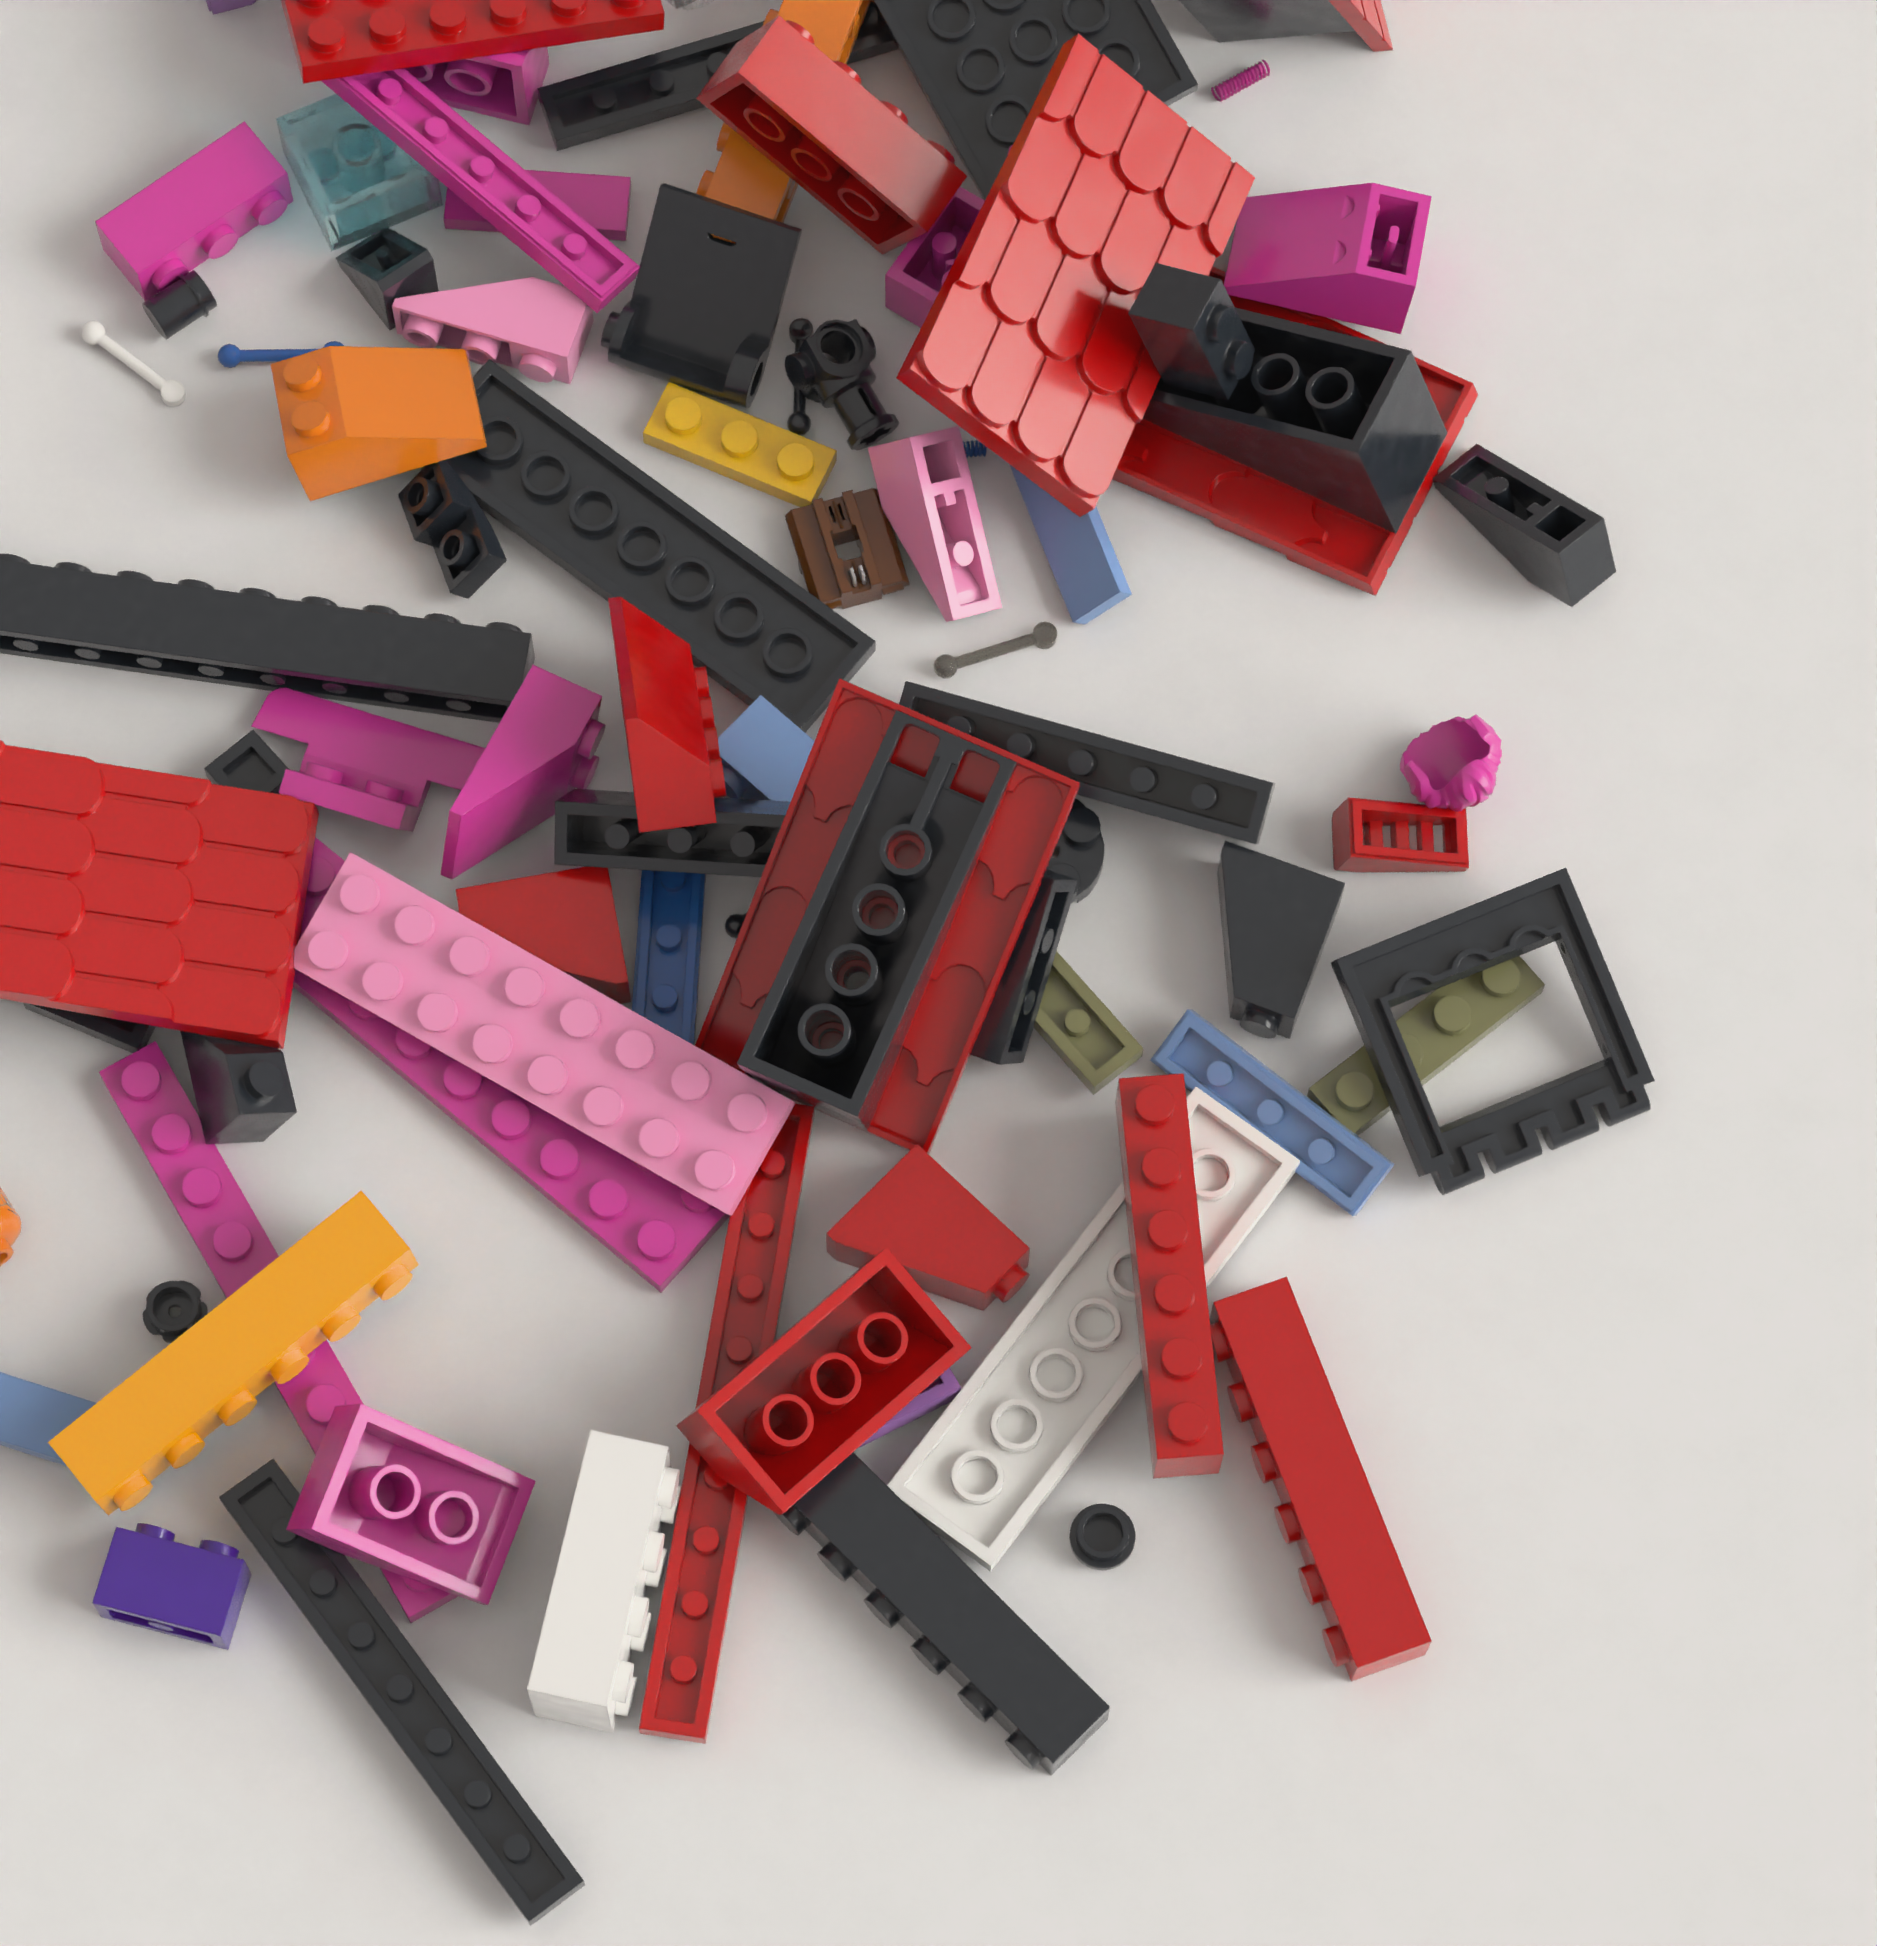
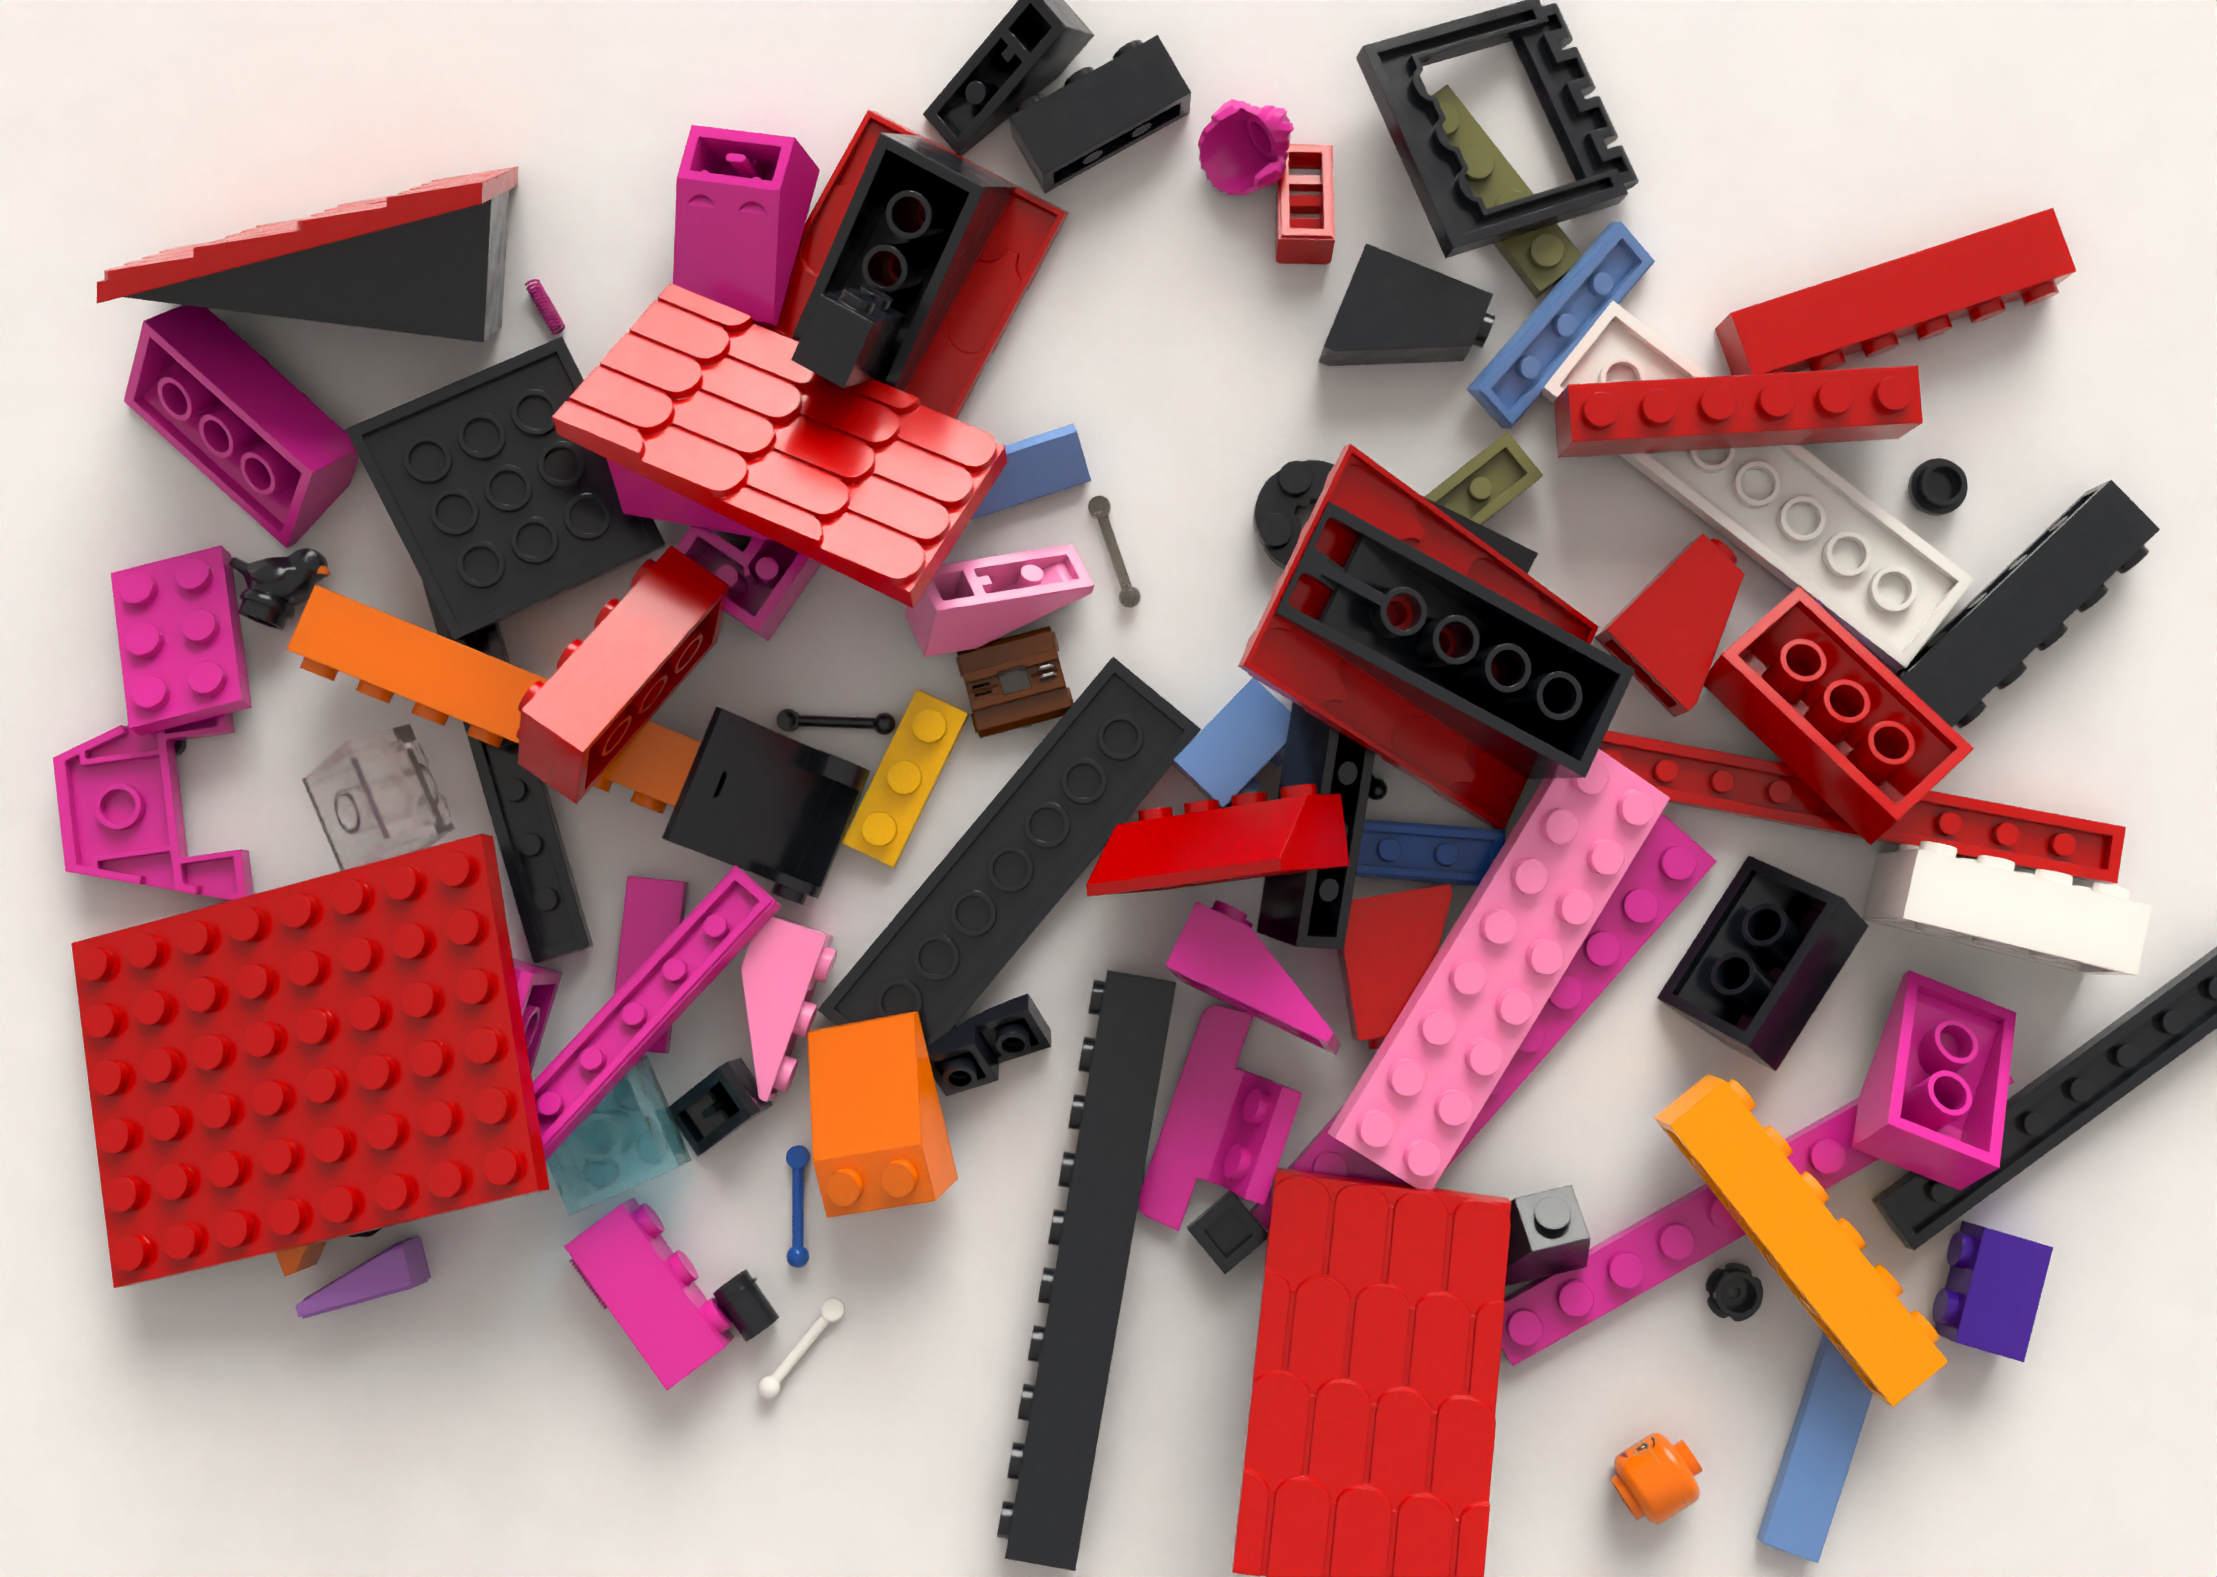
camera: 85 degrees left, 15 degrees up
(543, 1335) = (1763, 961): none -> black slope
(844, 383) = (855, 677): black connector -> none
(1110, 767) = (1243, 470): black brick -> none
(1484, 616) = (1100, 112): none -> black brick

